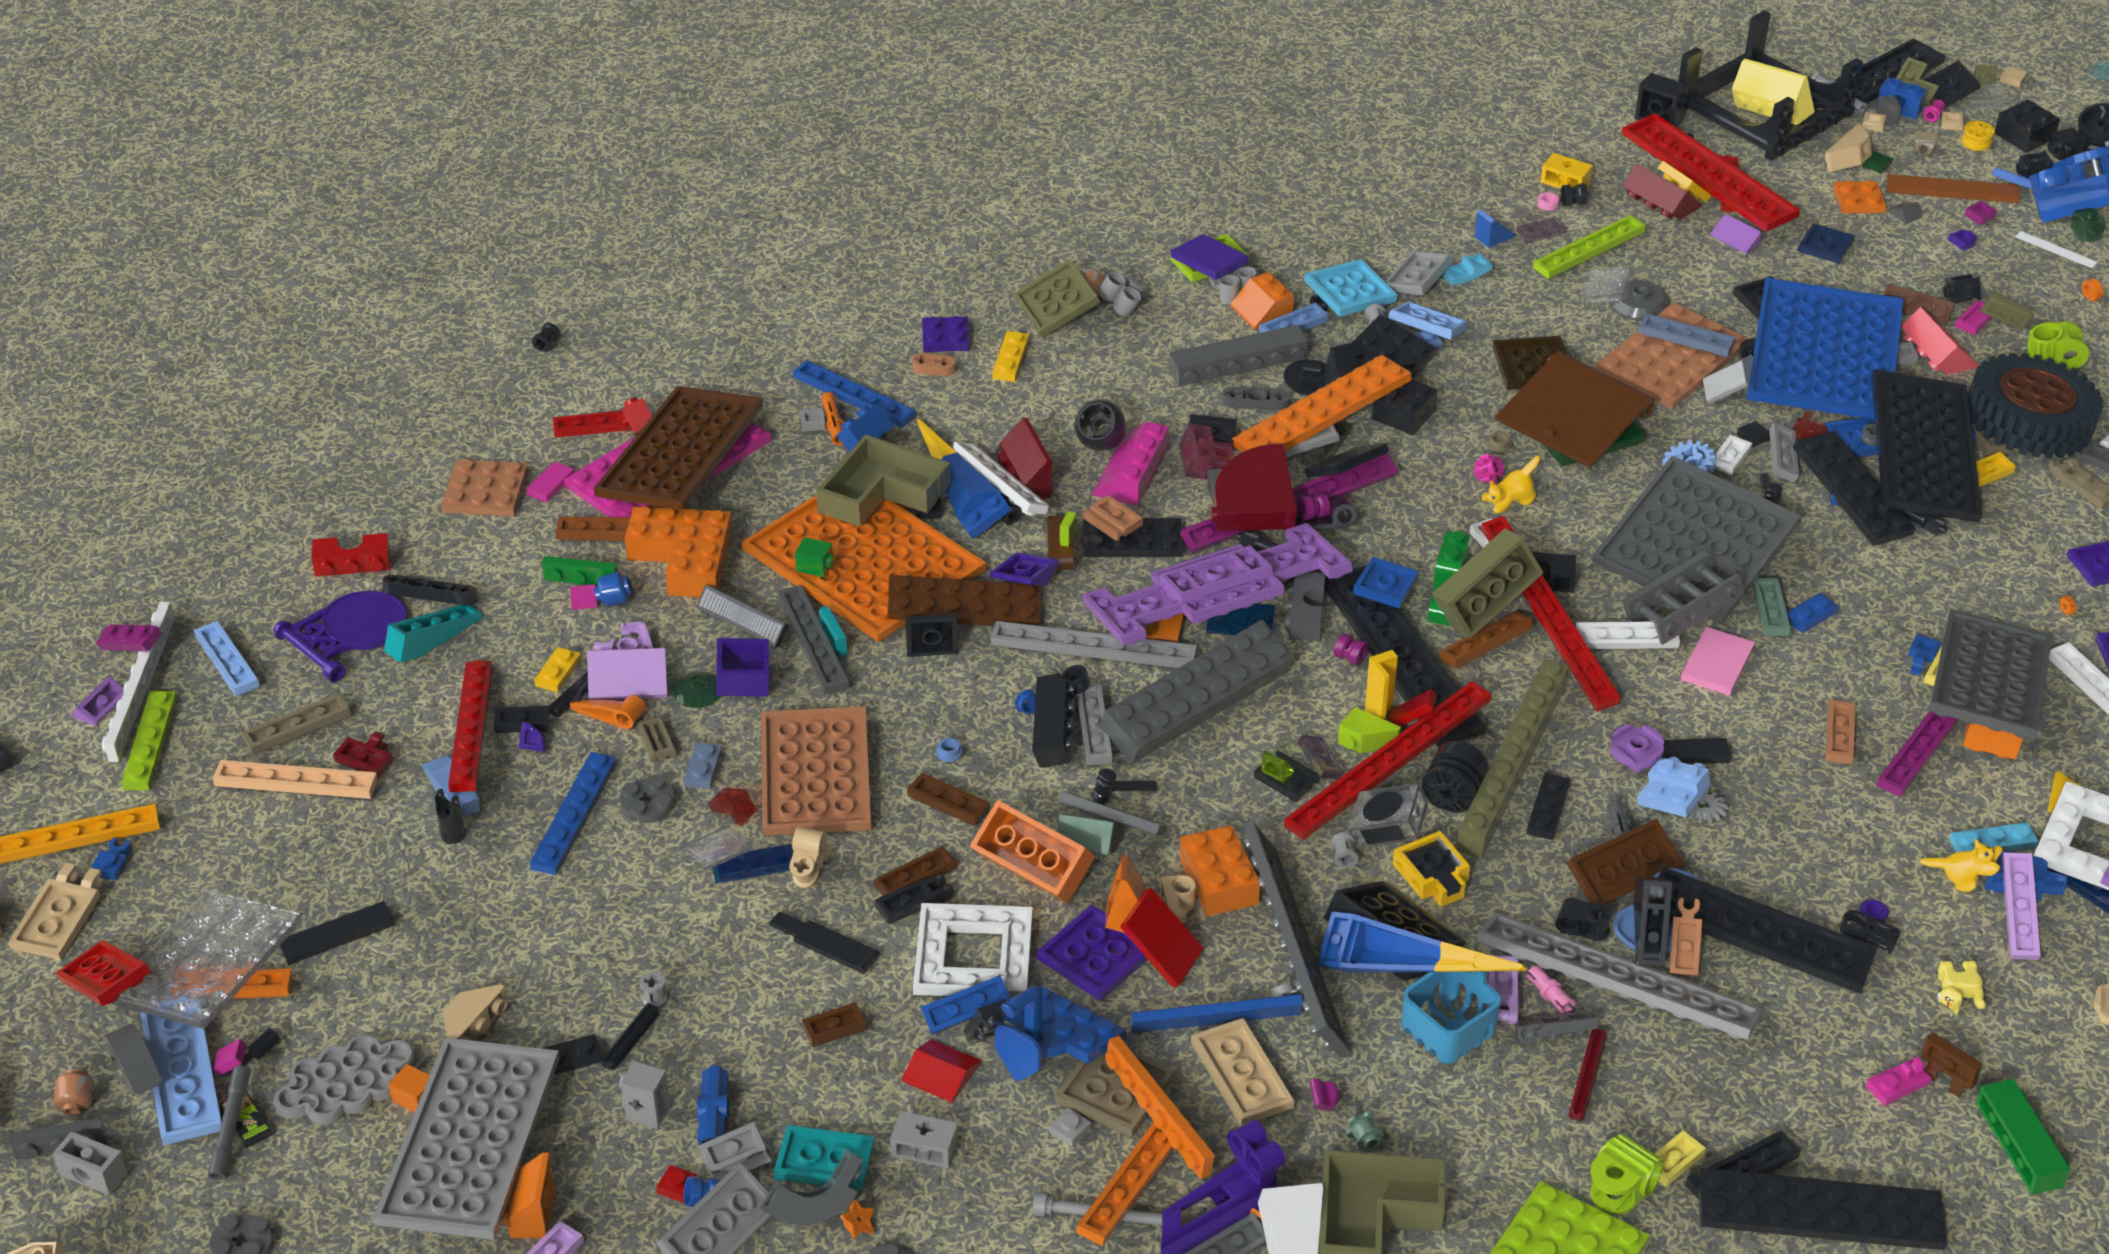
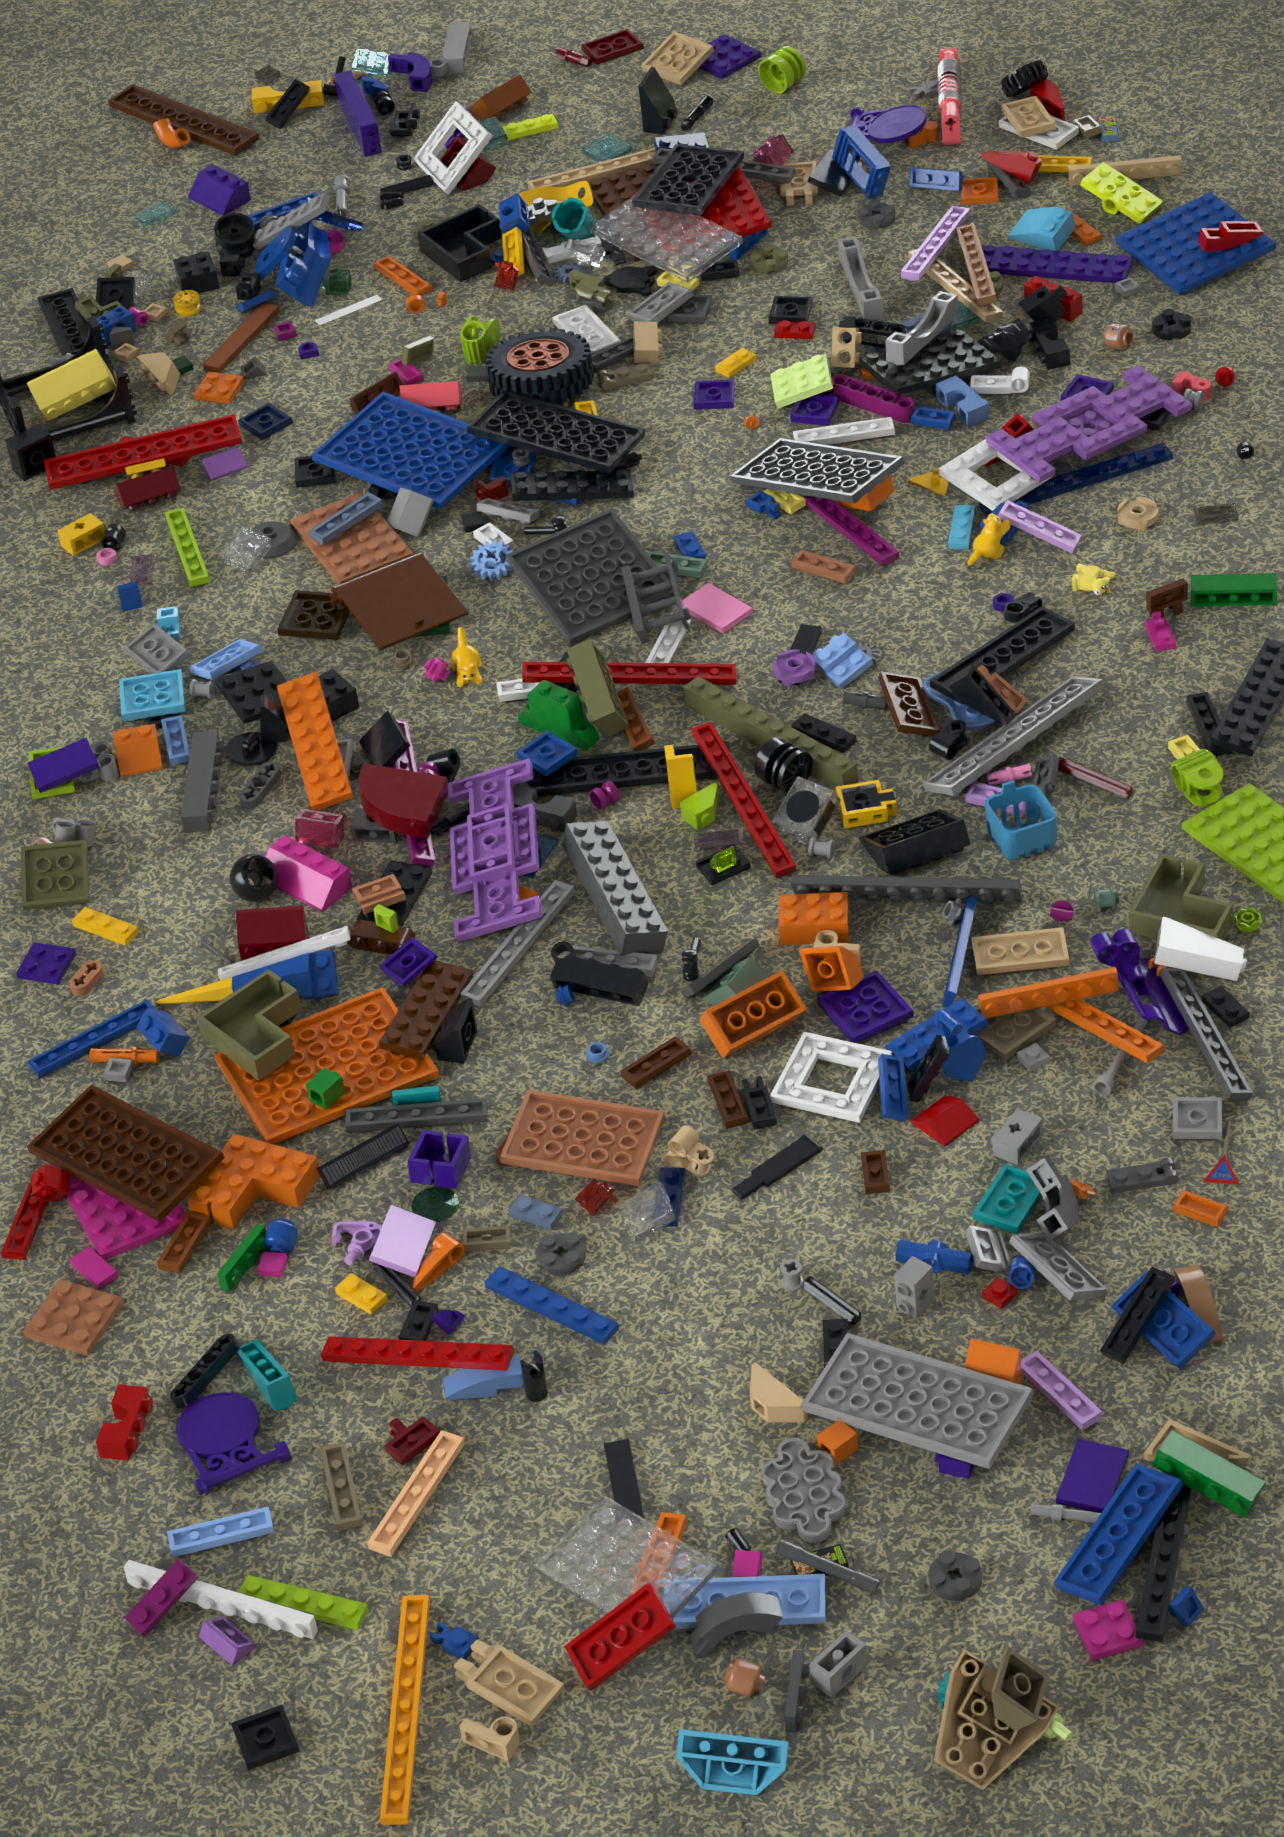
camera: 65 degrees left, 0 degrees up
(1161, 937) = (880, 957): red tile -> none
(1222, 428) = (283, 820): black plate -> none
(1374, 947) = (943, 845): blue plate -> none
(1413, 708) = (702, 764): red tile -> none
(1962, 288) = (375, 368): black window -> none

